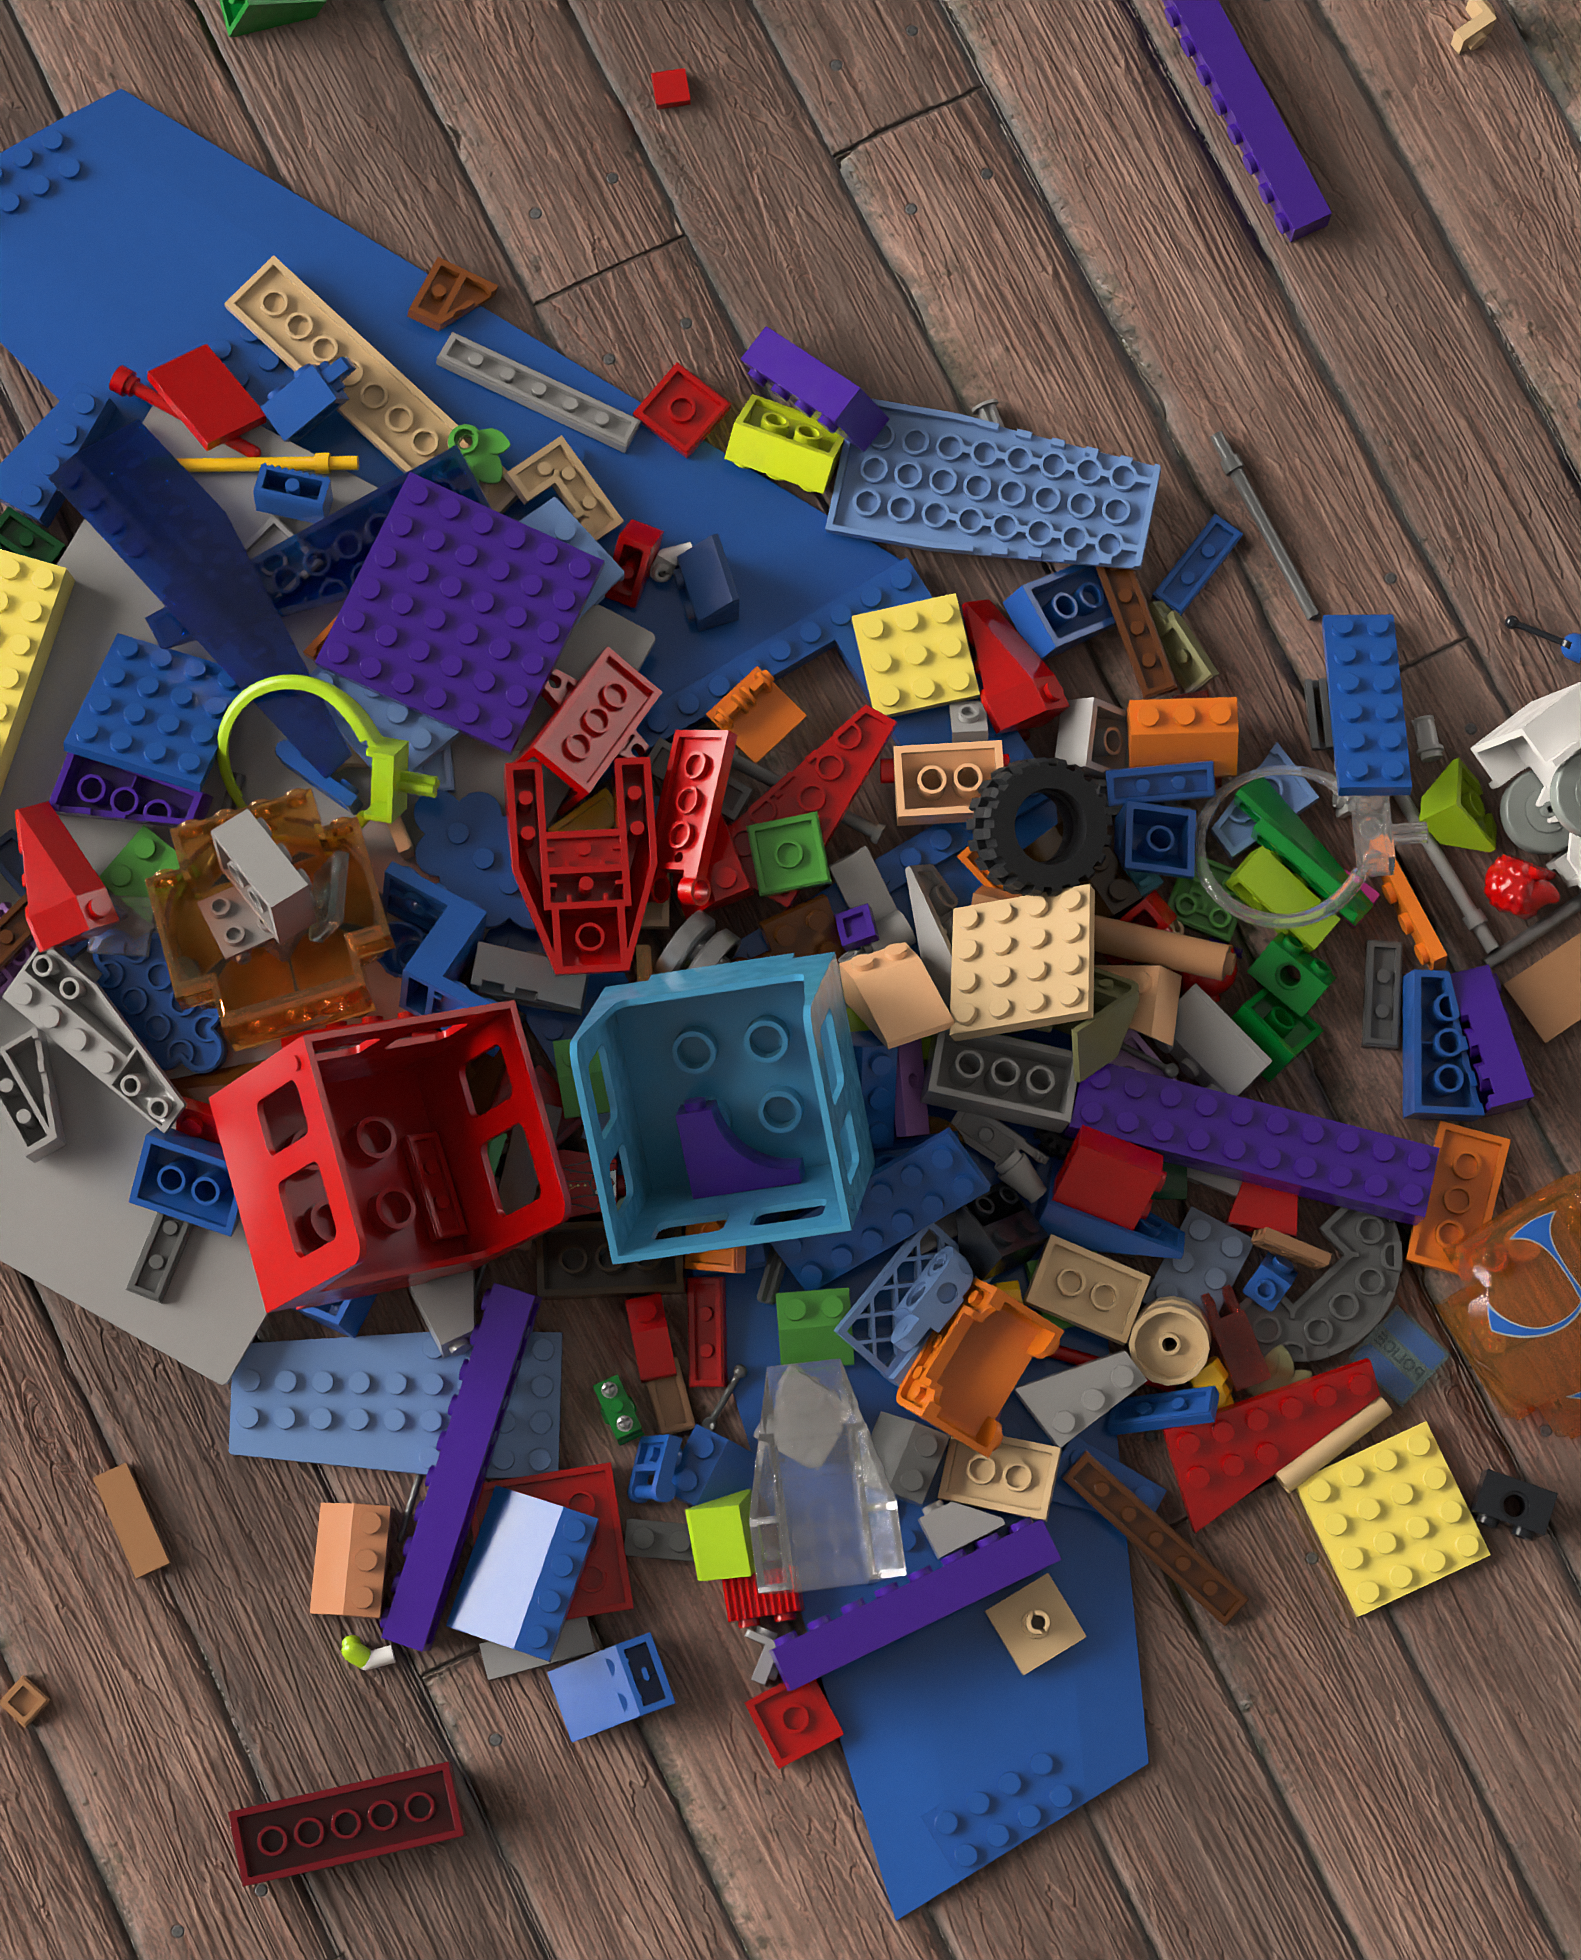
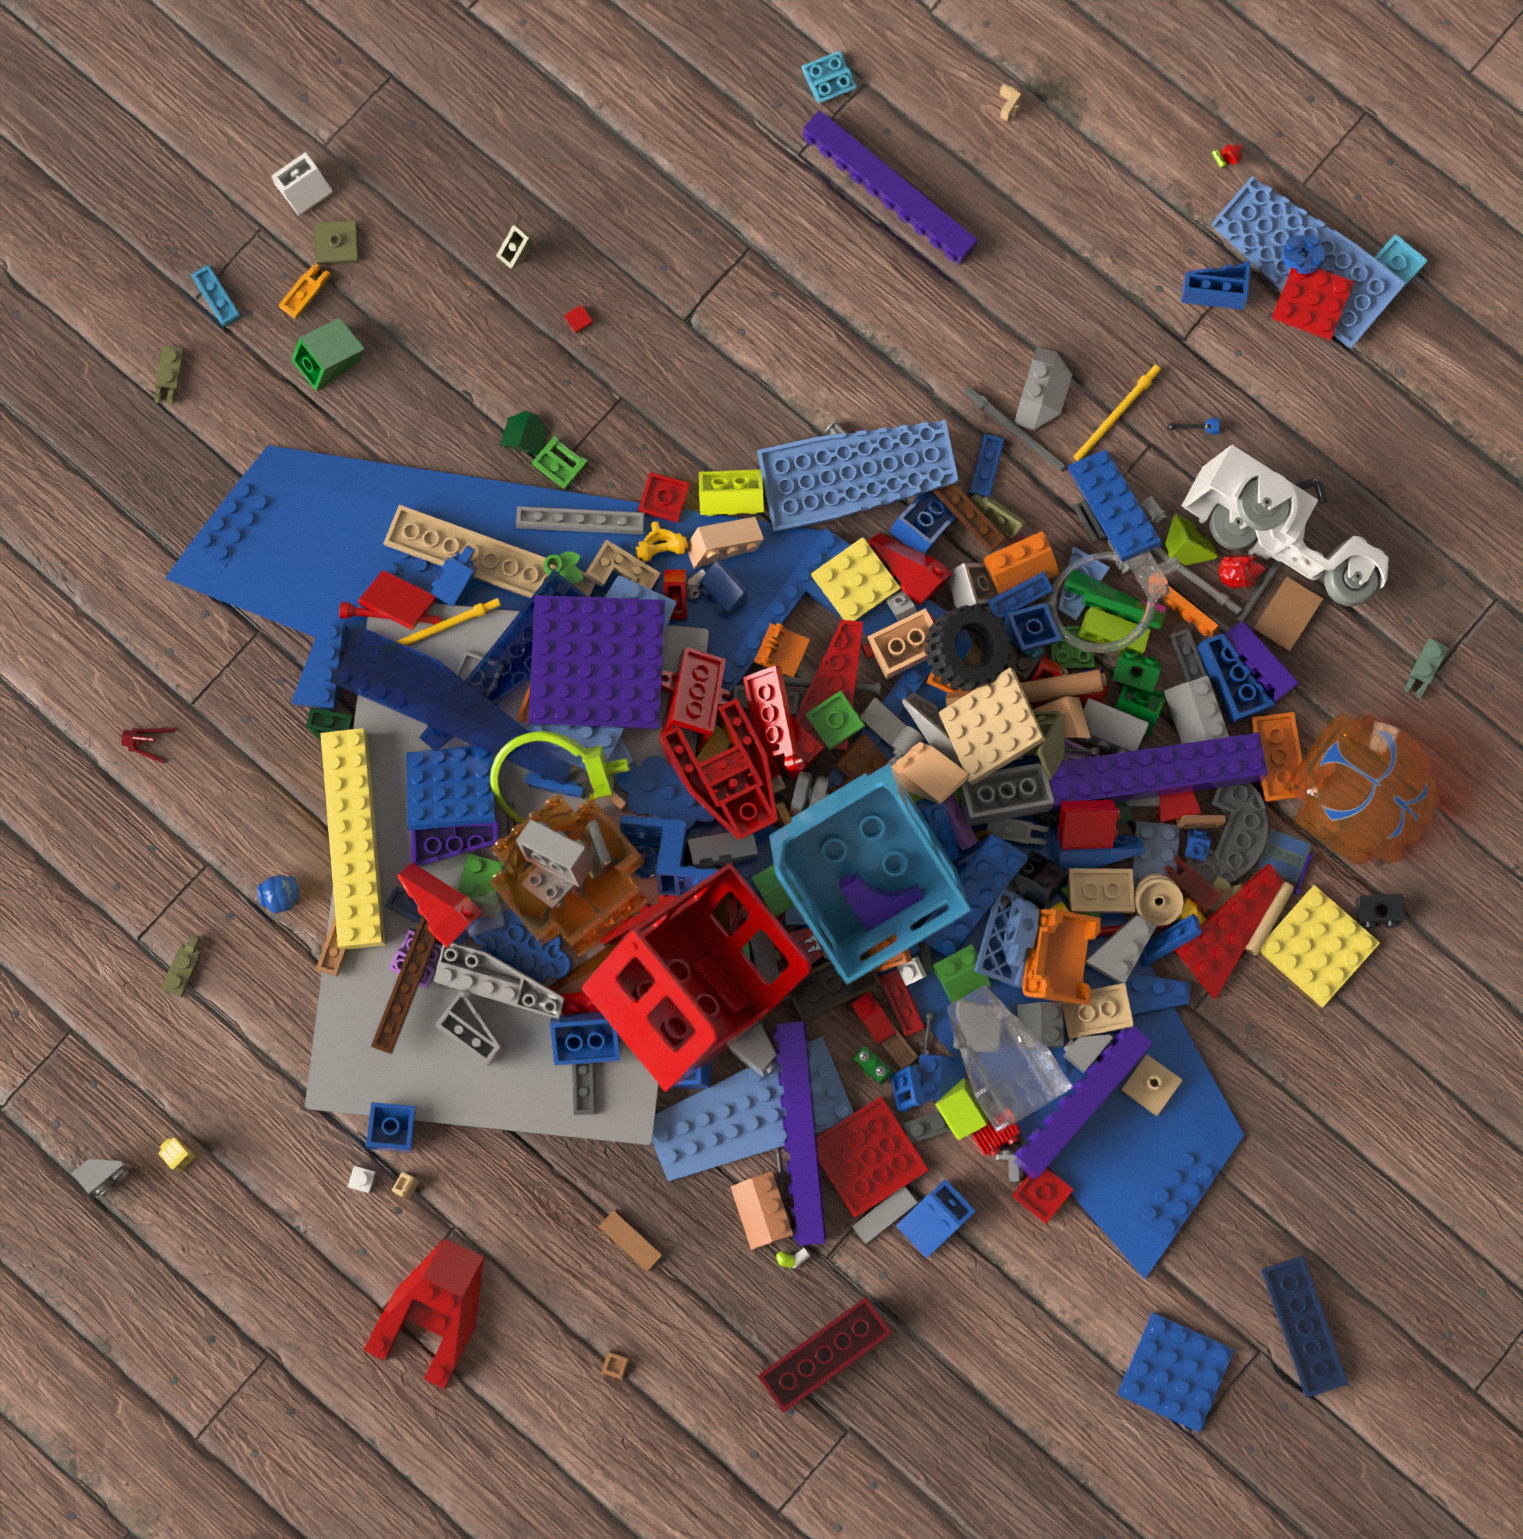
camera: 20 degrees left, 0 degrees up
(292, 494) = (472, 634): blue brick -> none
(449, 295) = (505, 486): dark orange wing -> none
(514, 228) = (525, 433): none -> dark green slope
(523, 1573) = (860, 1176): slope -> none
(537, 297) = (555, 467): none -> bright green plate
(620, 477) = (674, 543): none -> yellow piece
(741, 512) = (723, 541): none -> light nougat wedge
(741, 1290) = (912, 971): none -> white plate
(814, 388) = (734, 455): dark purple wedge -> none
(857, 927) = (889, 744): dark purple tile -> none
(1020, 1175) = (1038, 843): light grey cone -> none
(1155, 1538) = (1195, 1010): reddish brown tile -> none
(1334, 484) = (1043, 390): none -> light grey wedge
(1356, 1074) = (1195, 711): none -> light grey slope
(1397, 1418) = (1297, 890): none -> dark purple hinge
(1496, 538) = (1142, 384): none -> yellow bar

